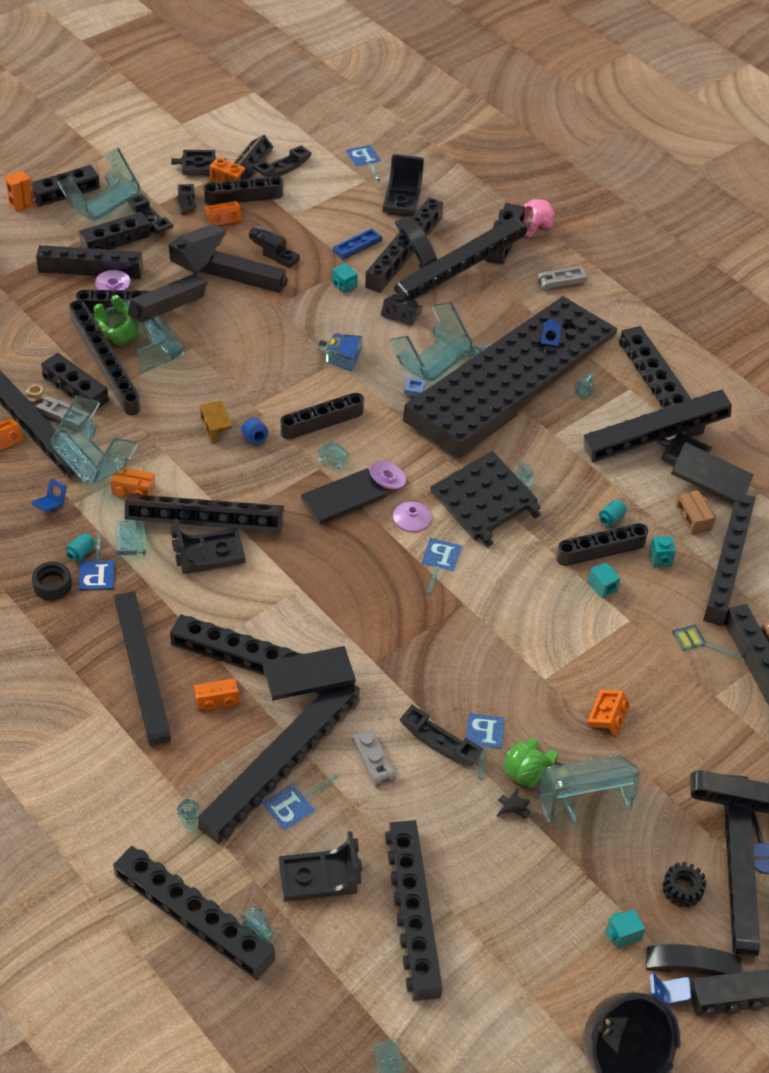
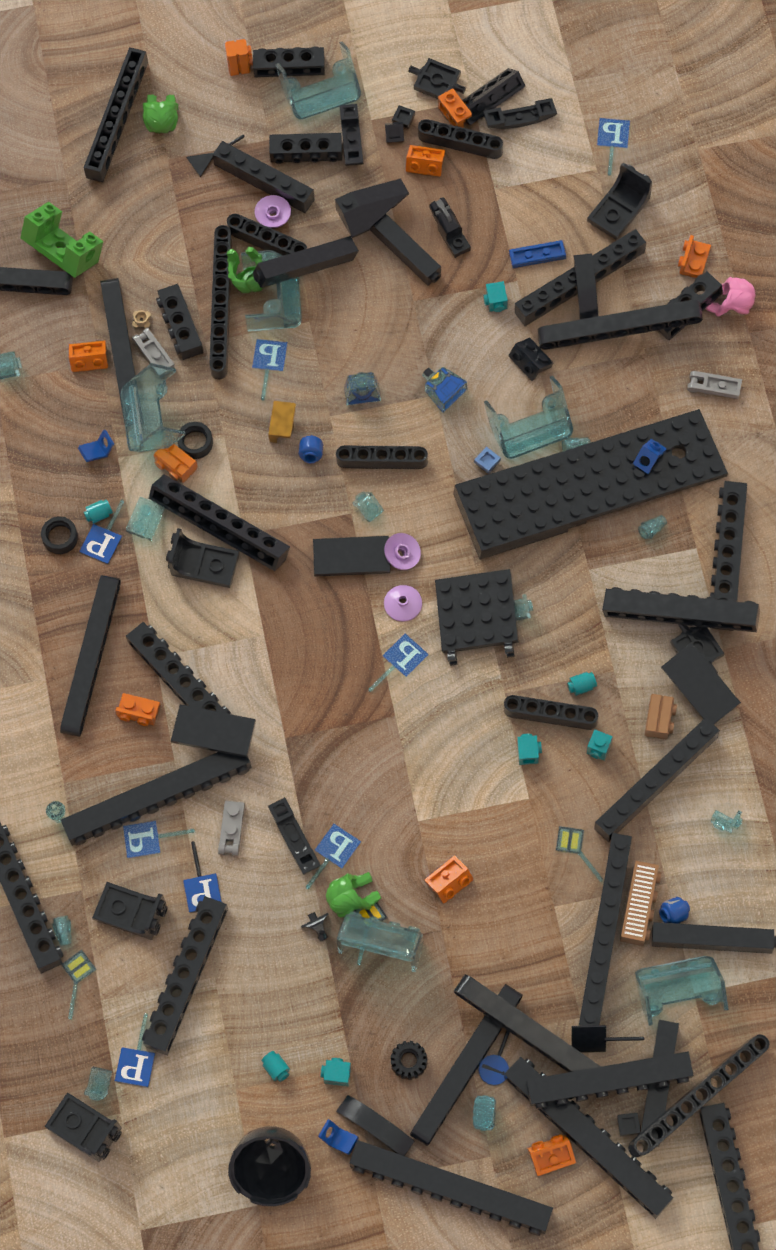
camera: 35 degrees right, 20 degrees up
(25, 273) = (201, 161): none -> black piece
(149, 452) = (196, 427): none -> black tyre
(172, 383) = (269, 356): none -> clear light blue piece
(272, 372) = (362, 388): none -> clear light blue torso
(295, 957) = (78, 968): none -> clear light blue piece
(373, 824) = (200, 886): none -> blue piece
(413, 1023) = (135, 1065): none -> blue piece
(484, 207) = (694, 259): none -> orange bracket
(561, 951) = (275, 1066): none -> teal brick

